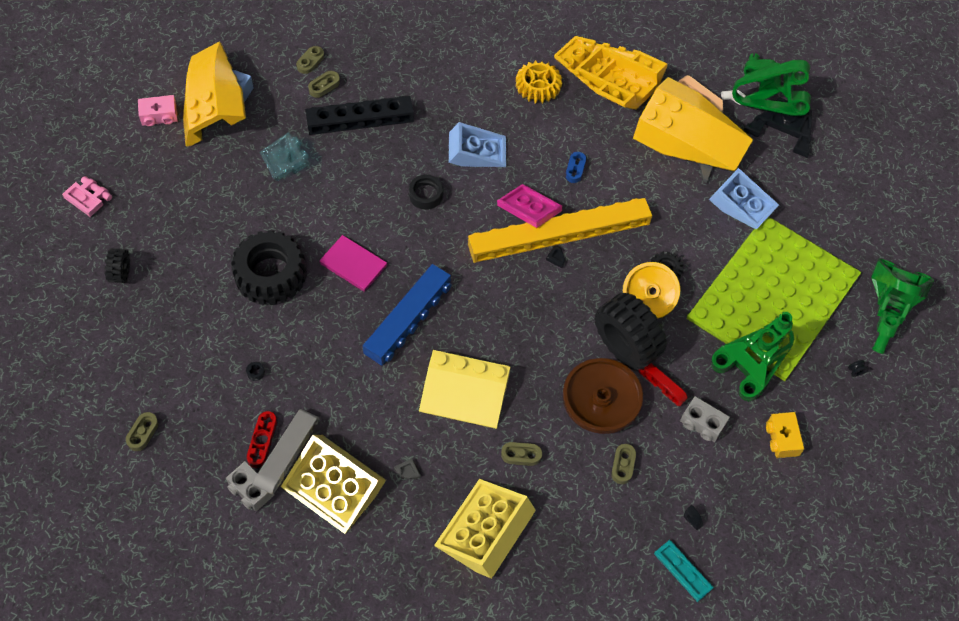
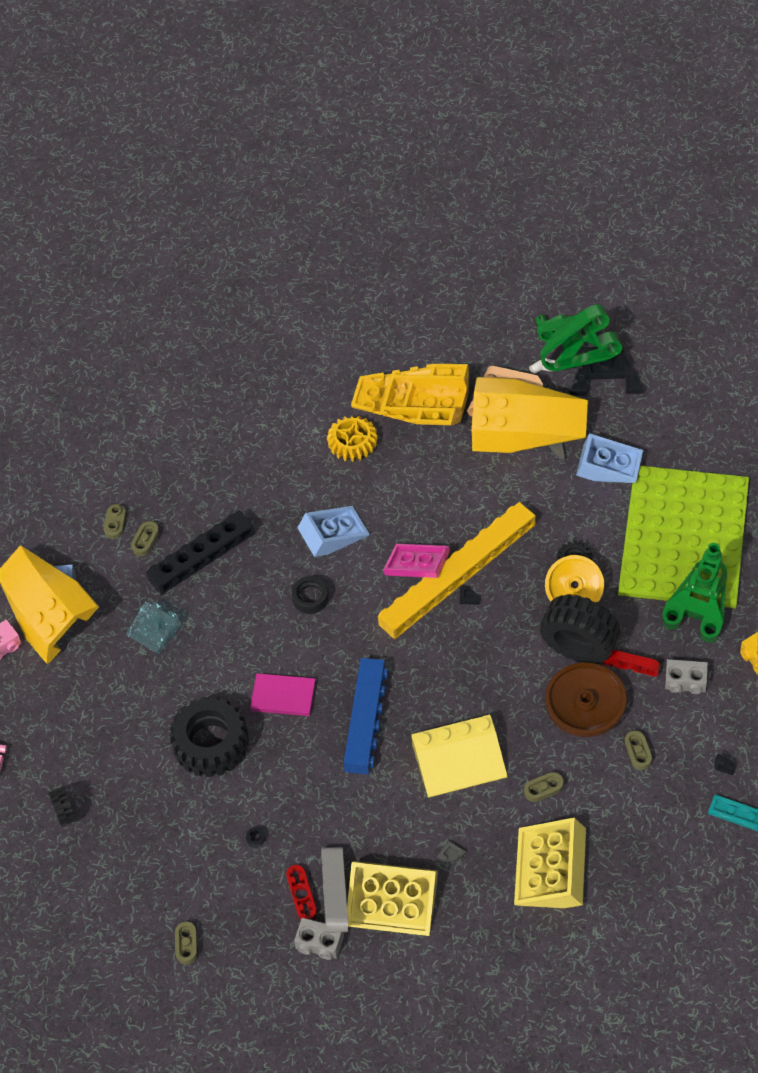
camera: 20 degrees left, 5 degrees down
(572, 166) = (433, 504): blue beam -> none

